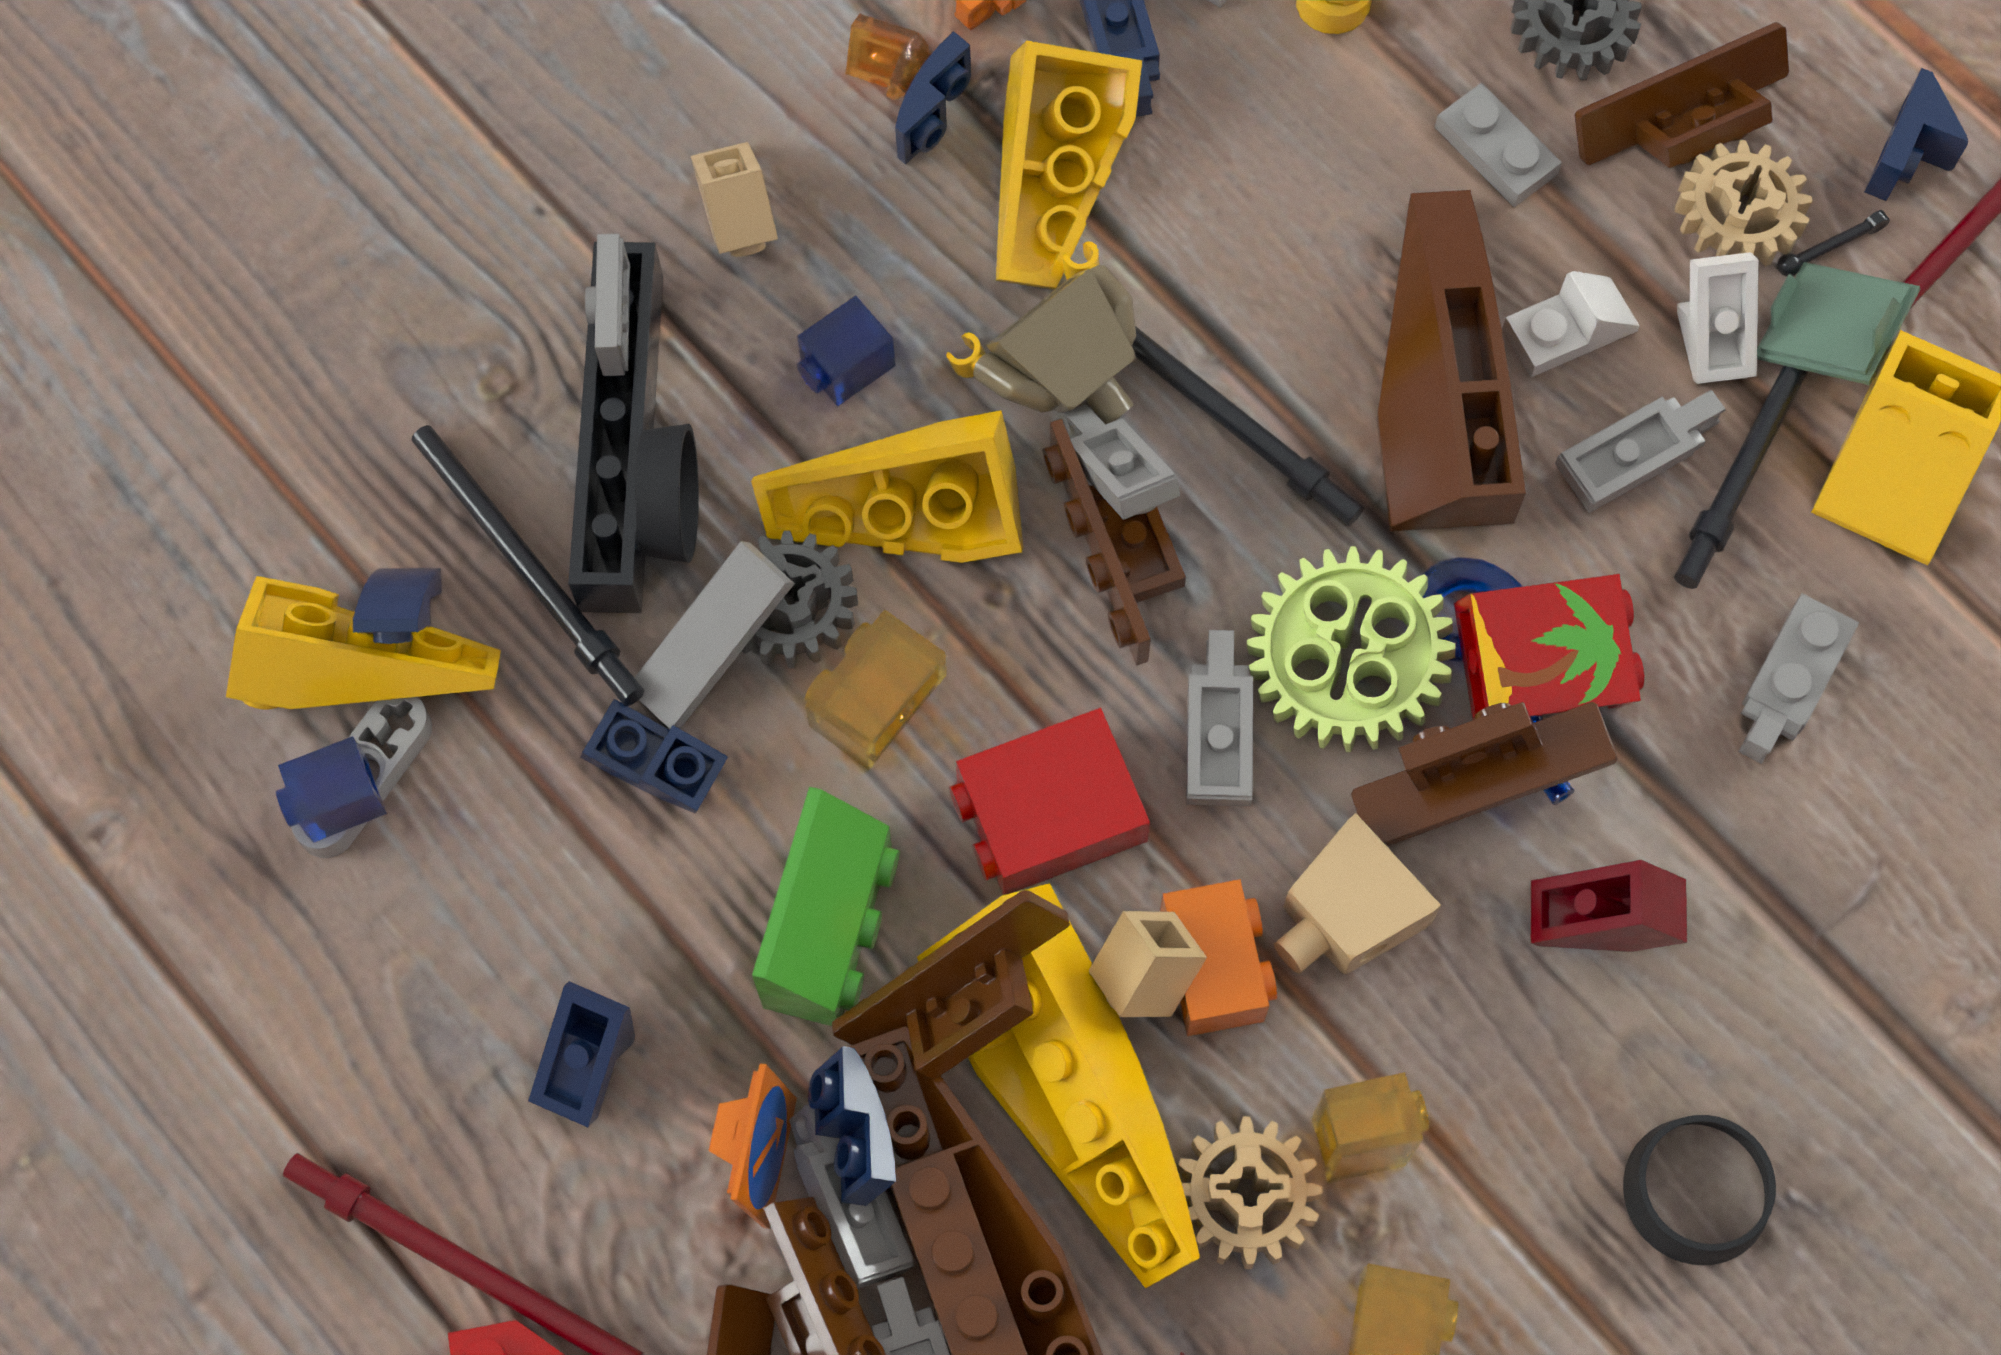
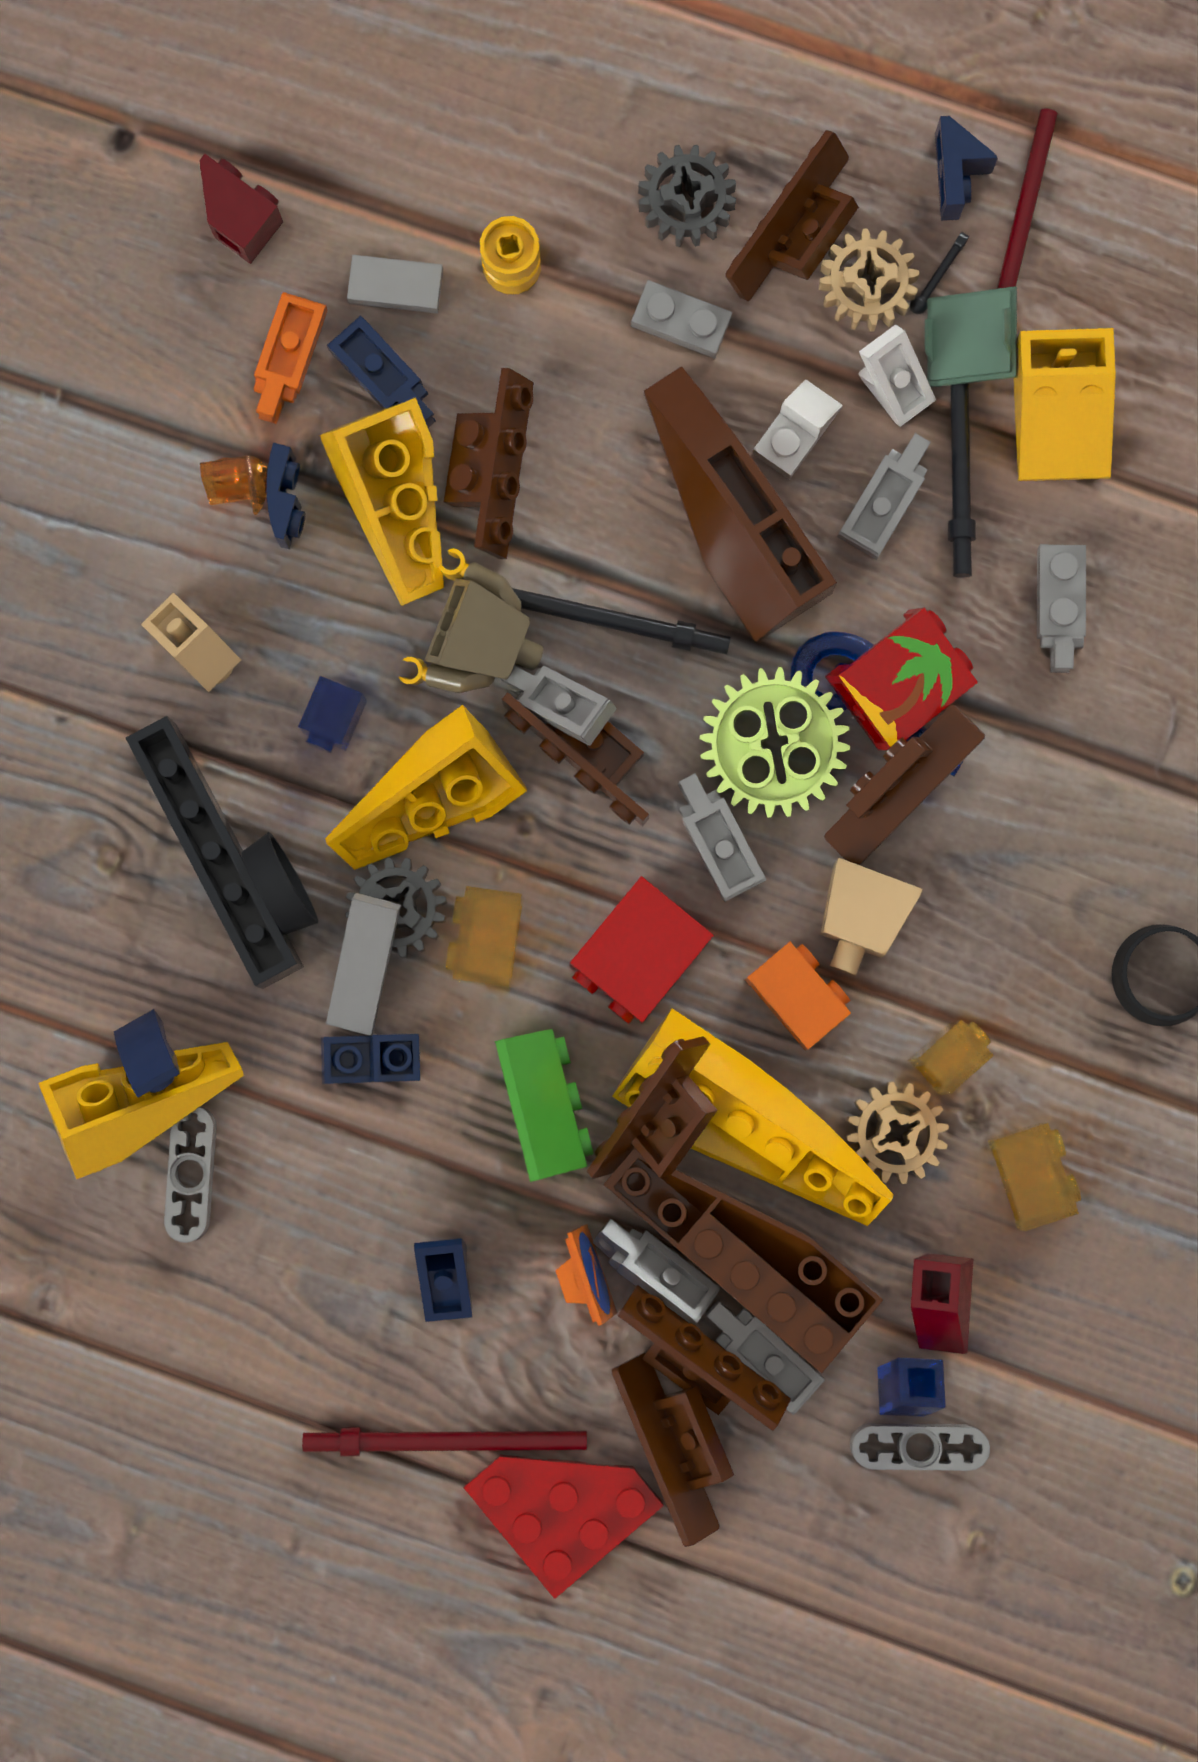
camera: 25 degrees left, 15 degrees up
(329, 790) = (183, 1203): clear blue brick -> none
(593, 646) = (291, 1010): black bar -> none
(609, 304) = (167, 783): light grey plate -> none
(852, 1111) = (628, 1220): dark blue slope -> none
(1147, 964) = (763, 1030): tan brick -> none
(1189, 180) = (489, 460): none -> reddish brown bracket
(1610, 908) = (1024, 829): dark red slope -> none

